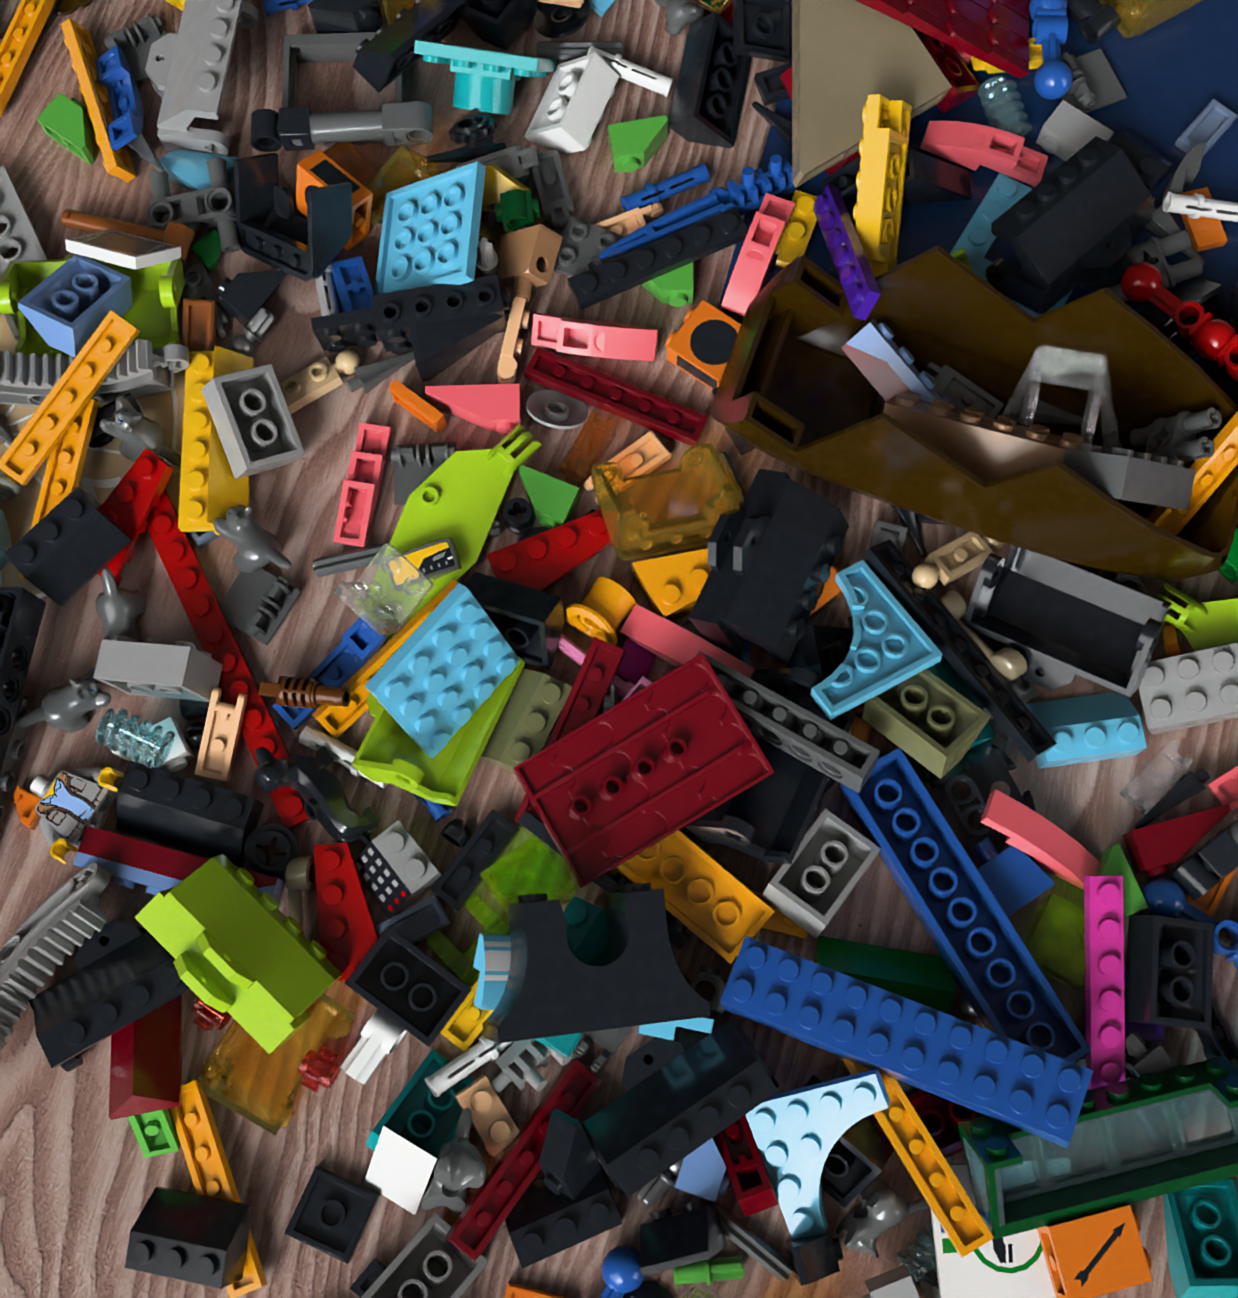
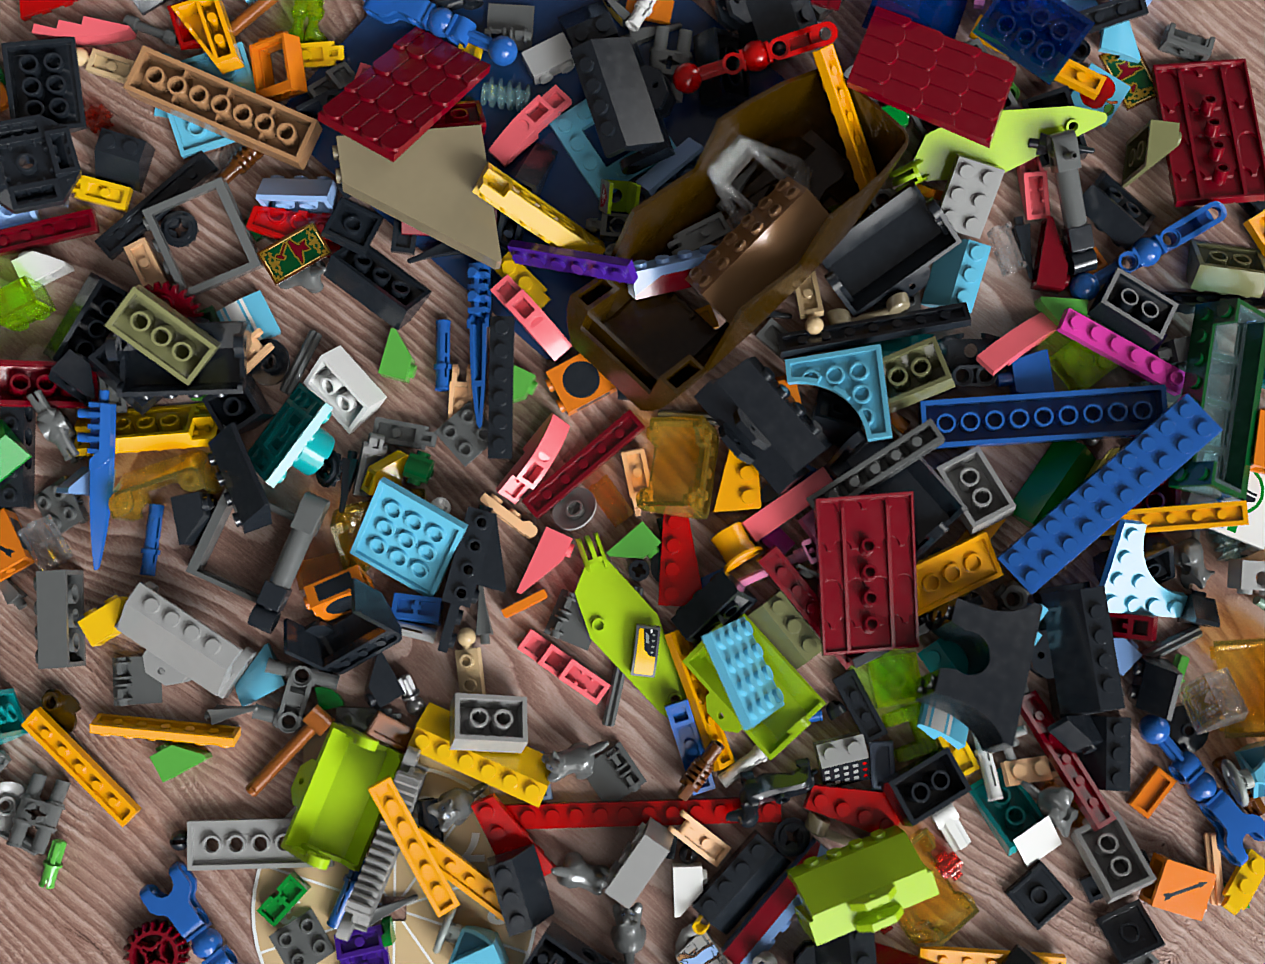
camera: 70 degrees left, 10 degrees up
(75, 302) = (342, 811): medium blue slope -> none
(123, 249) = (313, 761): tile -> none
(124, 97) = (175, 710): blue slope -> none
(134, 739) = (682, 897): clear light blue piece -> none
(386, 591) = (655, 685): clear bracket -> none
(528, 258) = (455, 478): medium nougat torso -> none
(635, 73) = (358, 317): white pin -> none
(1133, 475) = (835, 170): dark grey brick -> none
(1177, 435) = (809, 122): dark grey pin -> none

